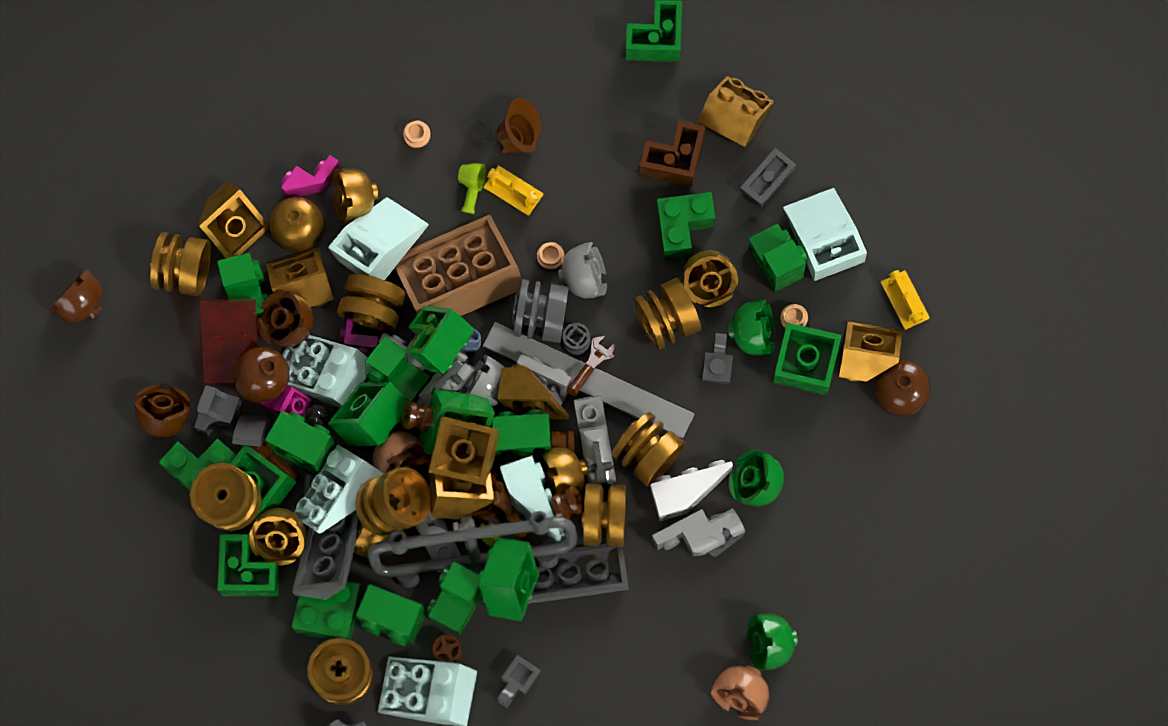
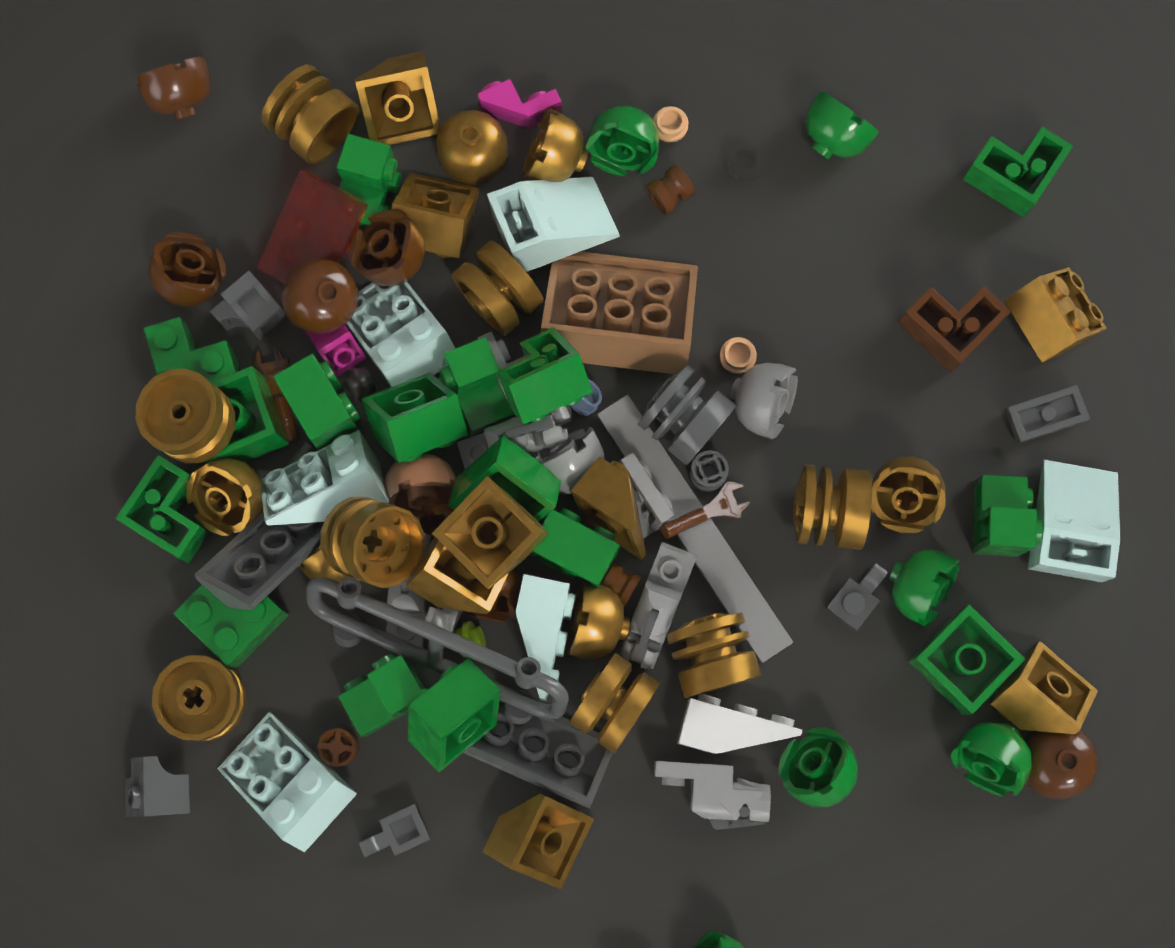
camera: 25 degrees right, 5 degrees up
(251, 429) = (271, 352): dark grey slope -> none
(363, 343) = (458, 329): magenta bracket -> none
(390, 615) = (294, 669): green brick -> none
(393, 162) = (623, 141): none -> green cylinder
(417, 416) = (464, 454): reddish brown wheel -> none
(442, 176) = (670, 189): none -> reddish brown wheel
(473, 177) = (704, 212): lime bar -> none
(502, 501) = (503, 617): reddish brown piece -> none
(513, 190) = (741, 253): yellow hinge -> none
(519, 128) = (792, 186): reddish brown piece -> none
(526, 75) = (837, 128): none -> green cylinder
(568, 503) = (577, 667): reddish brown wheel -> none
(609, 628) = (539, 839): none -> pearl gold slope
(678, 217) = (914, 400): green brick -> none
(794, 314) = (979, 596): light nougat plate -> none
(860, 409) = (994, 757): none -> green cylinder
(904, 299) = (1123, 656): yellow hinge -> none

